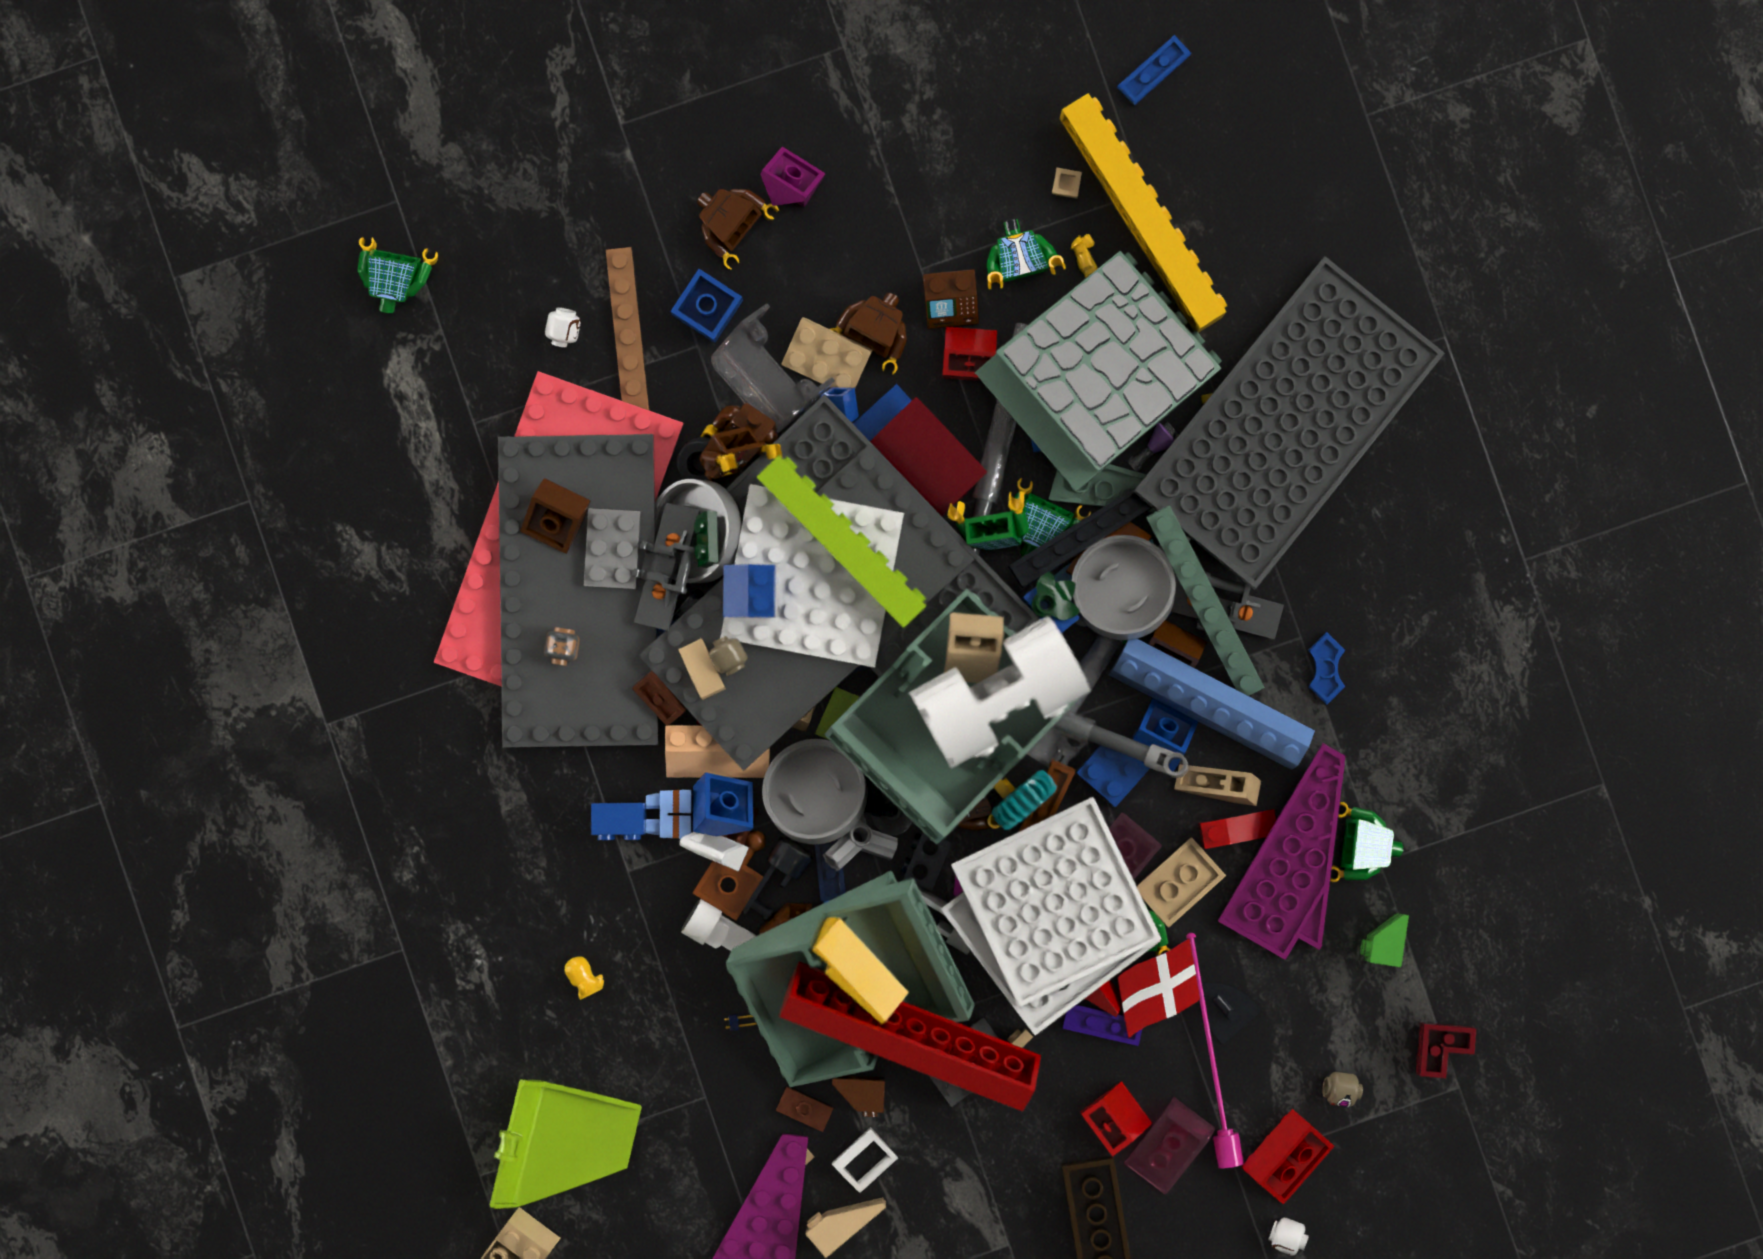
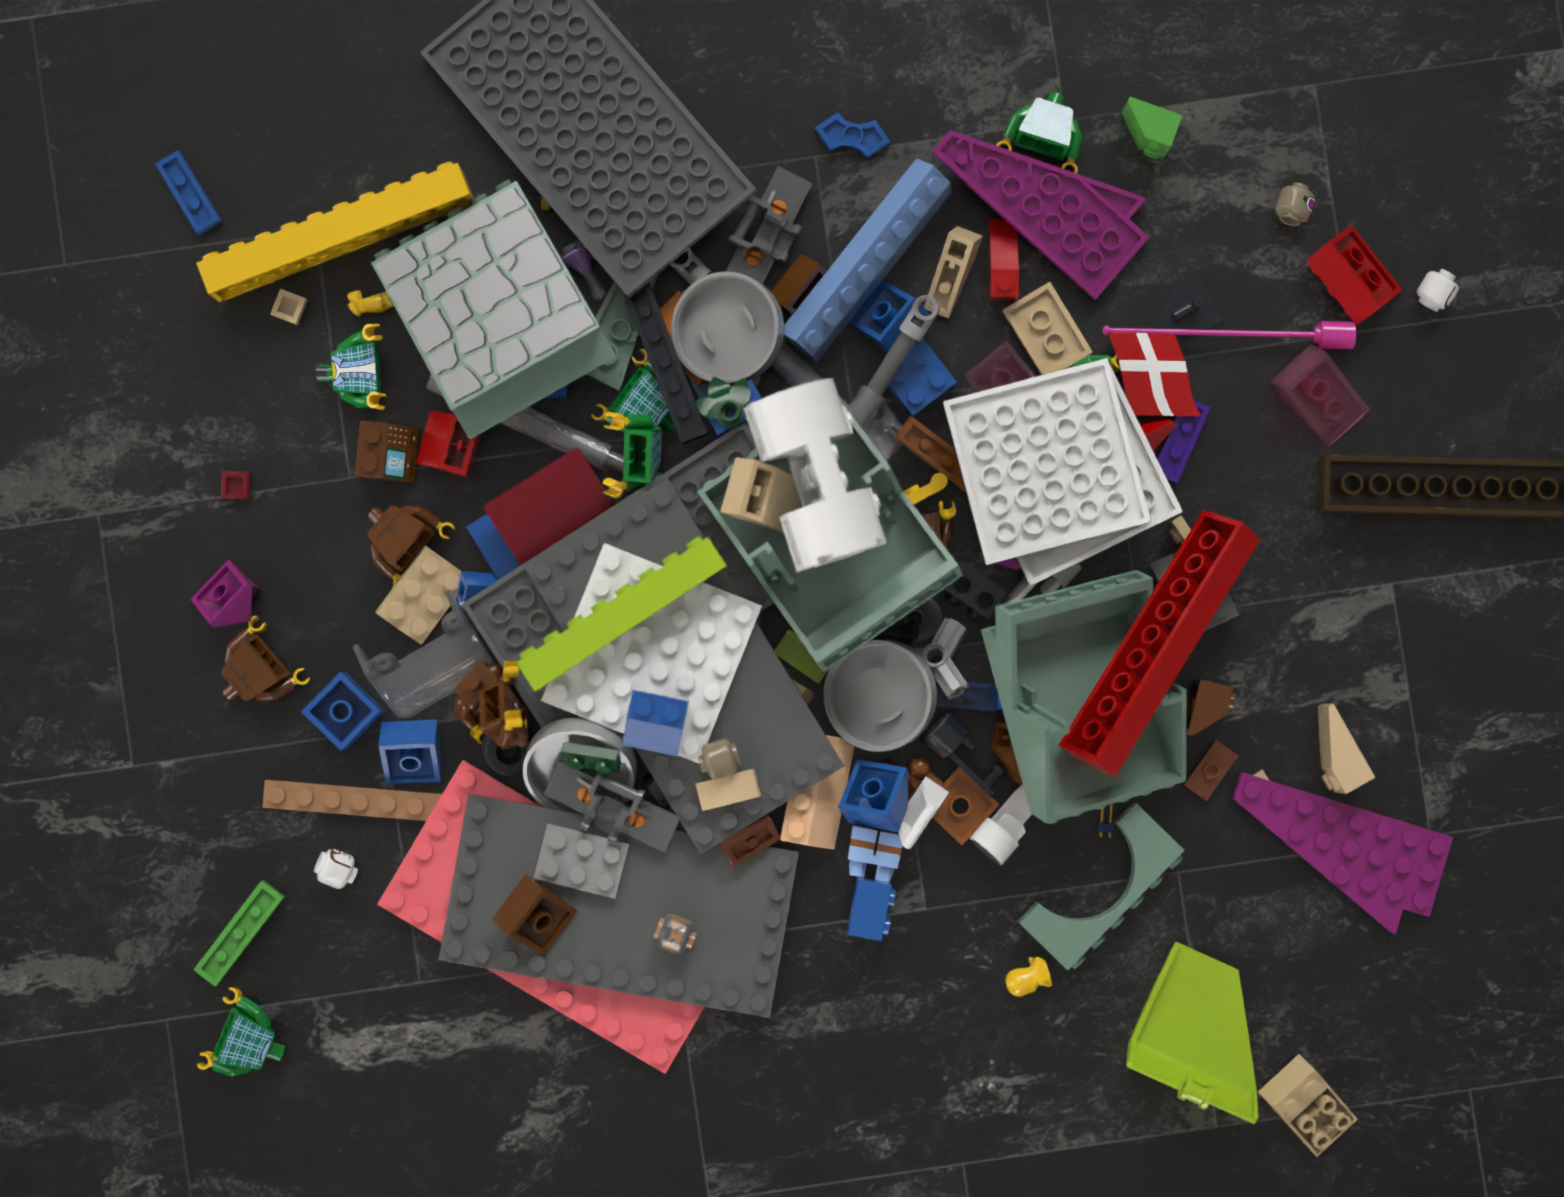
camera: 75 degrees left, 0 degrees up
(487, 251) = (239, 933): none -> bright green plate
(627, 1009) = (1151, 855): none -> sand green arch
(681, 374) = (410, 751): none -> blue slope
(857, 1147) = (1262, 723): white tile -> none
(858, 970) = (1081, 683): yellow slope -> none
(894, 167) = (236, 485): none -> dark red tile
(1024, 799) = (932, 474): teal gear -> none
(1116, 1118) = (1282, 445): red slope -> none
(1205, 601) = (758, 245): sand green plate -> none
(1437, 1041) = (1264, 94): dark red brick -> none

